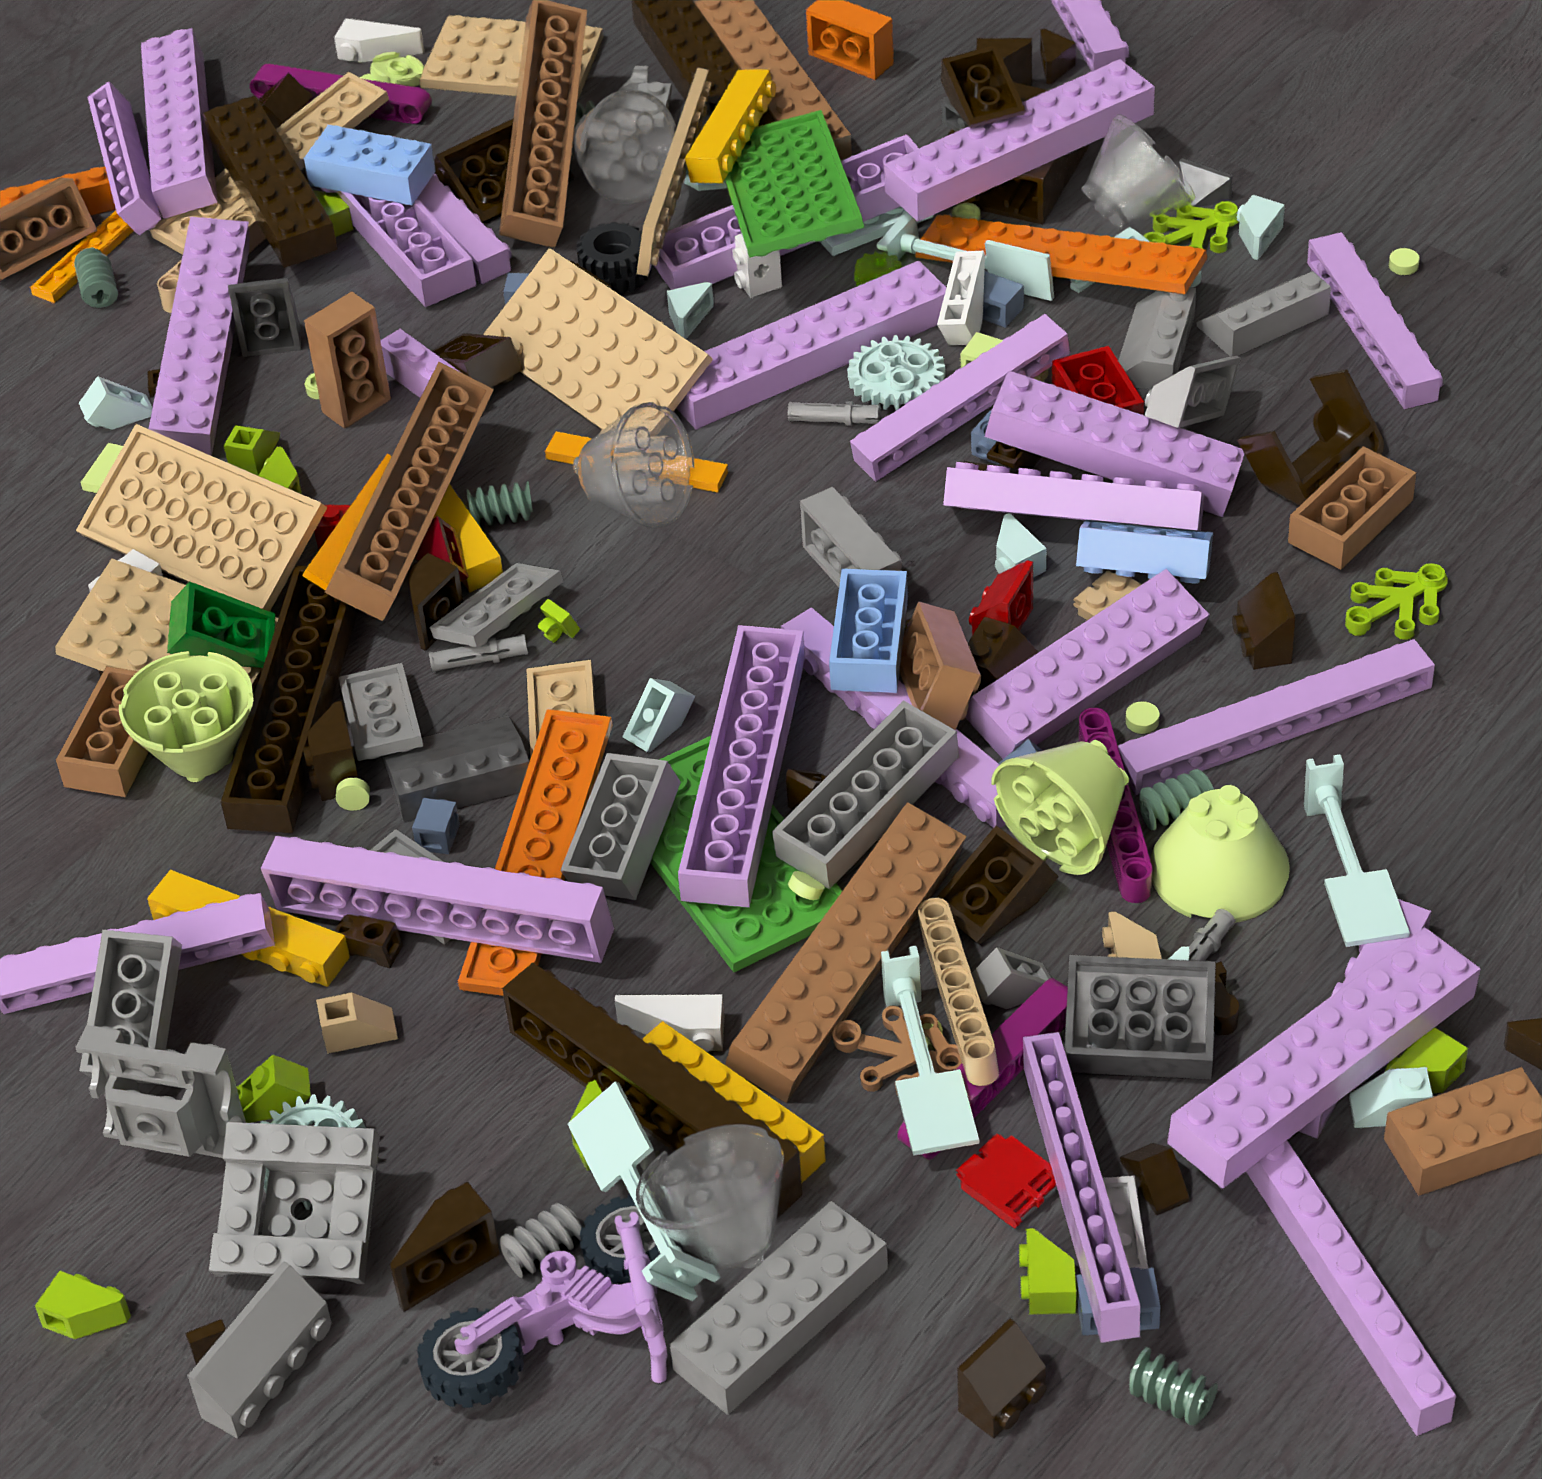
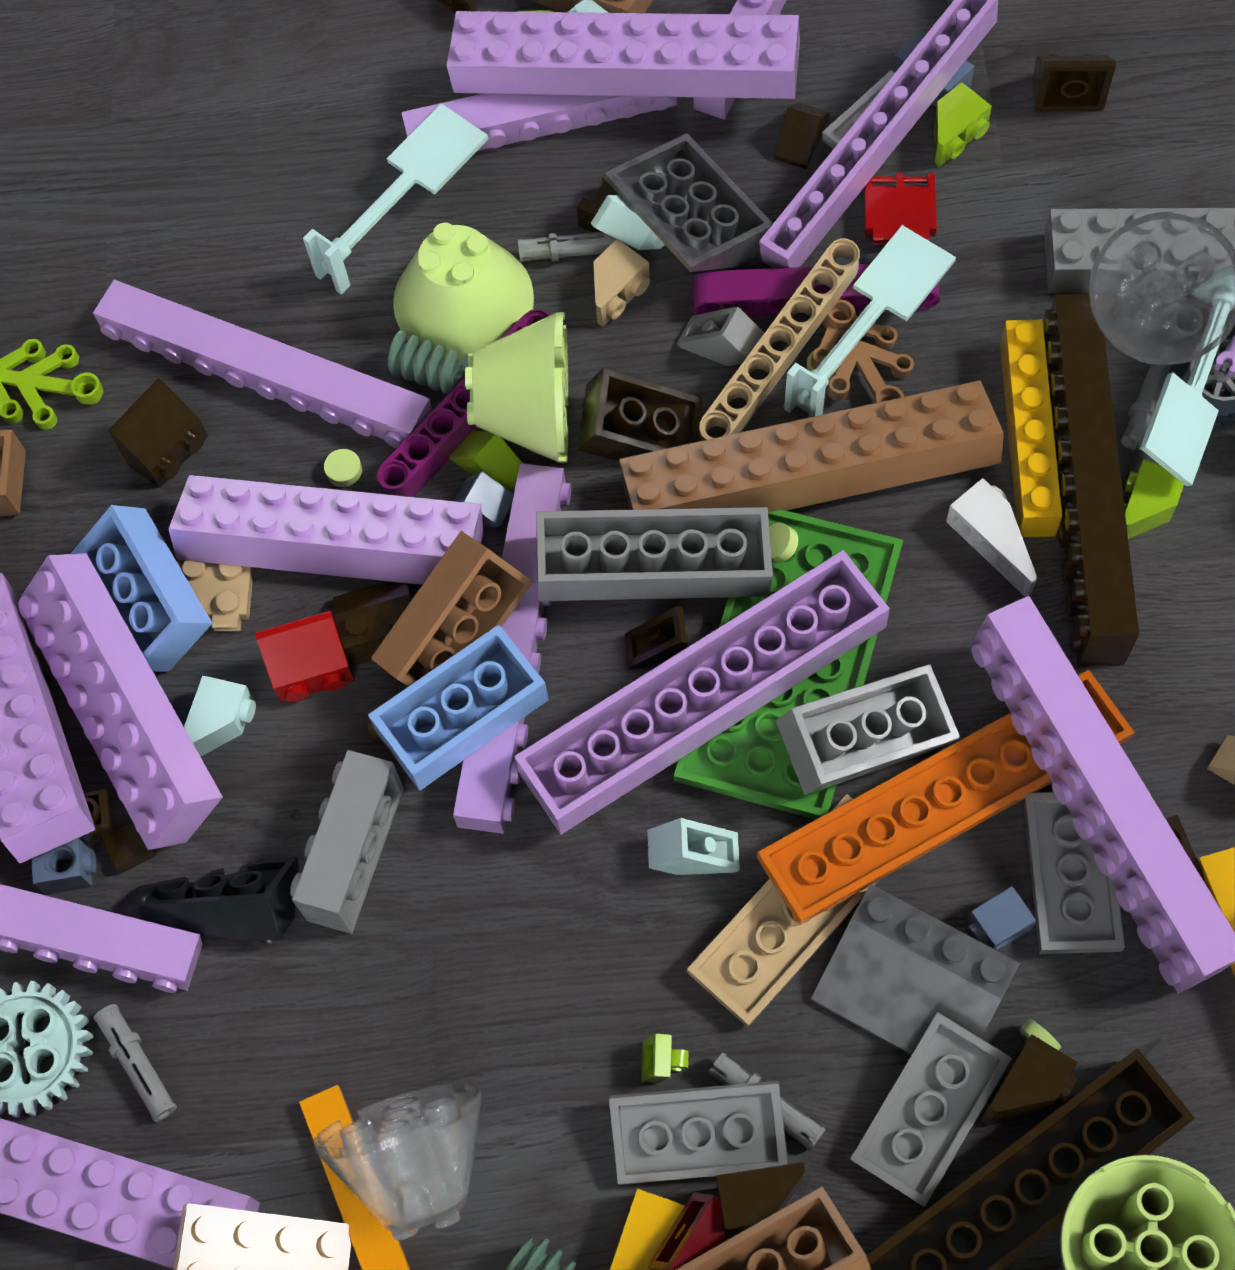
camera: 130 degrees left, 20 degrees up
(894, 489) = (232, 906): none -> black wedge

